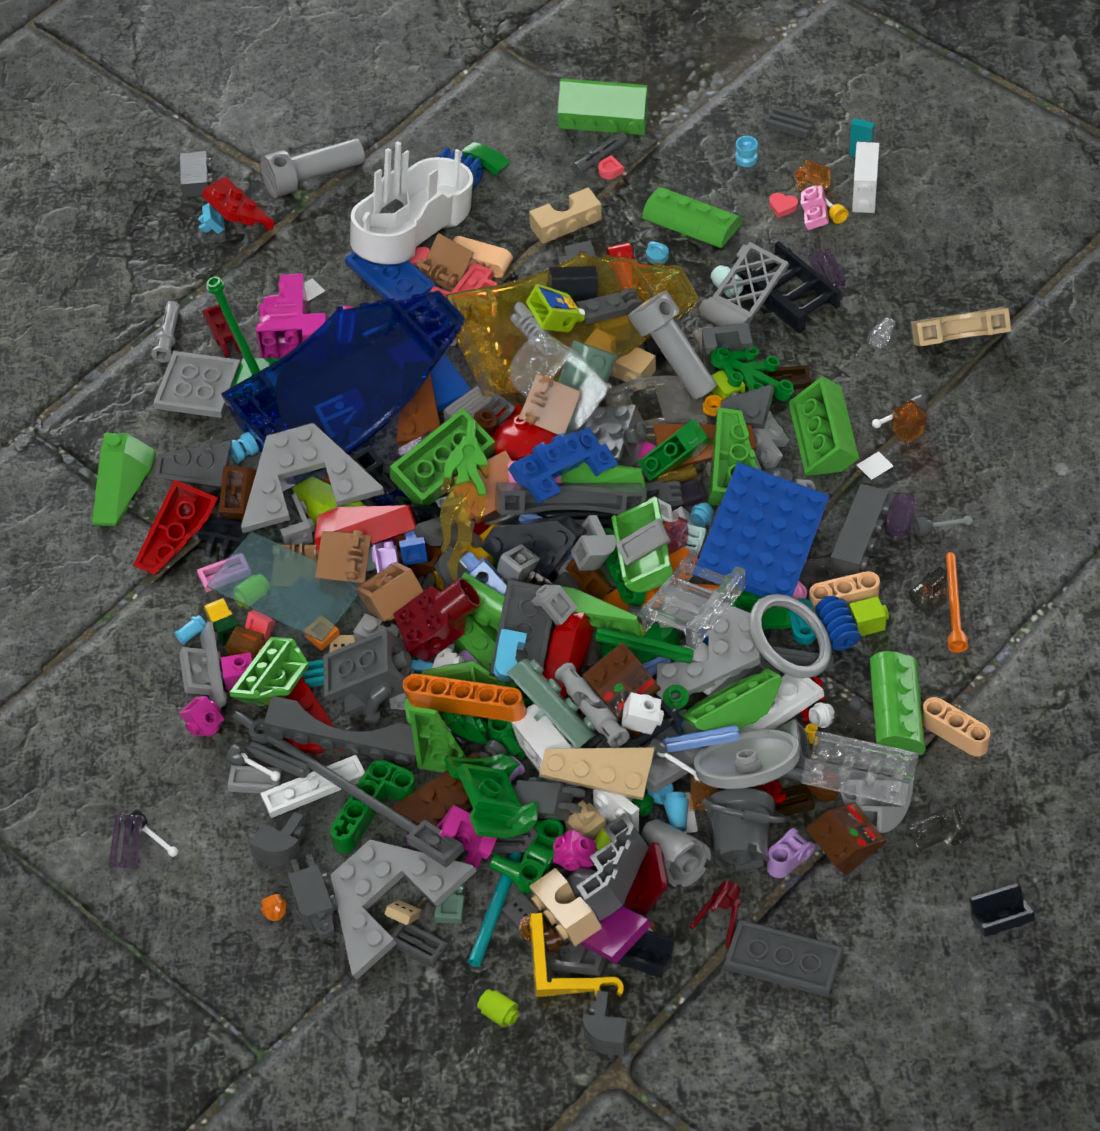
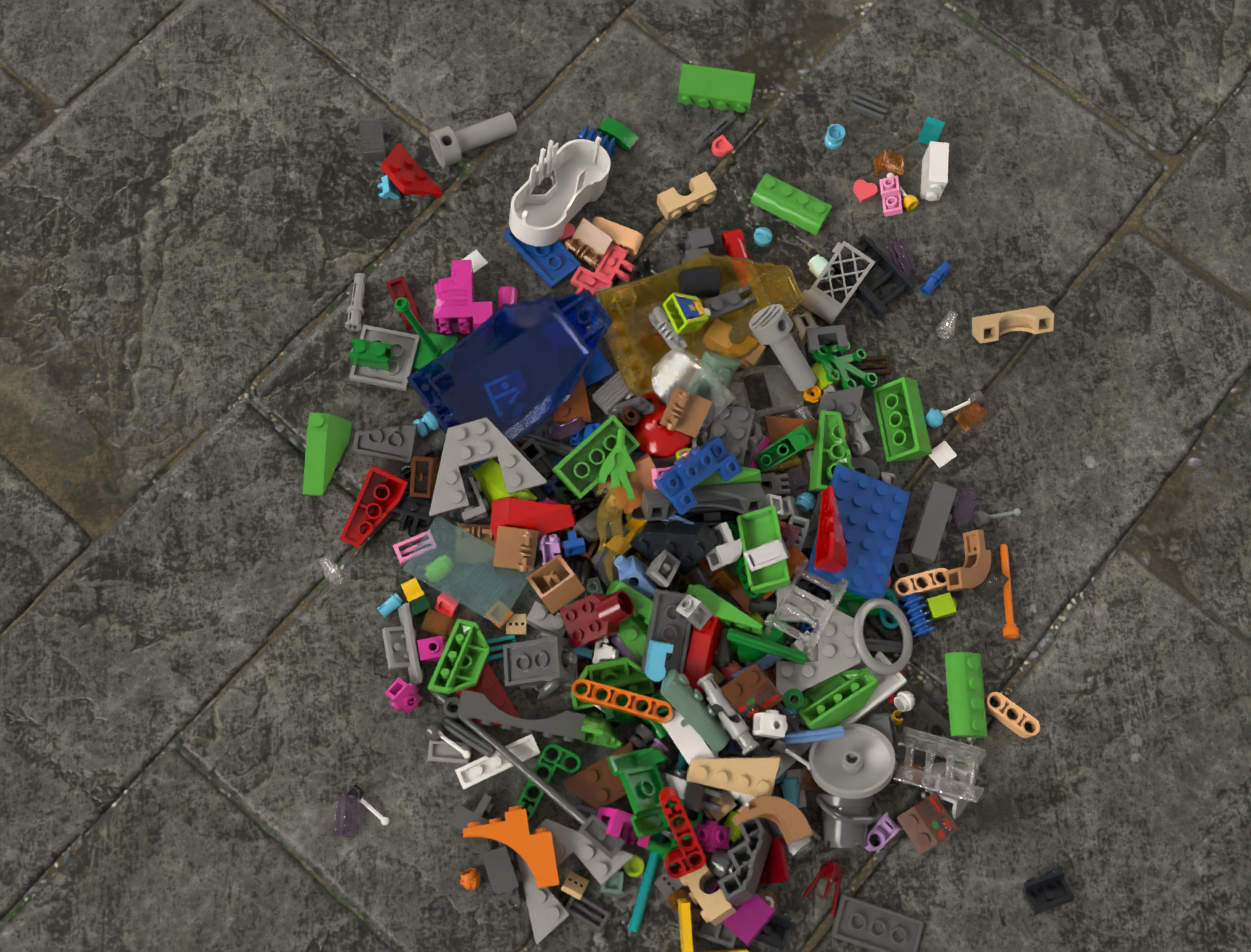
camera: 10 degrees left, 20 degrees up
(123, 598) = (333, 573): none -> clear cone
(181, 374) = (371, 354): none -> green brick
(328, 845) = (515, 832): none -> orange arch
(477, 895) = (634, 867): none -> lime tile
(527, 828) = (680, 829): none -> red beam
(651, 806) = (782, 812): none -> medium nougat arch
(723, 528) = (830, 543): none -> red wedge
(863, 425) = (934, 418): none -> medium azure plate
(875, 280) = (935, 279): none -> blue pin
(897, 579) = (975, 566): none -> medium nougat arch

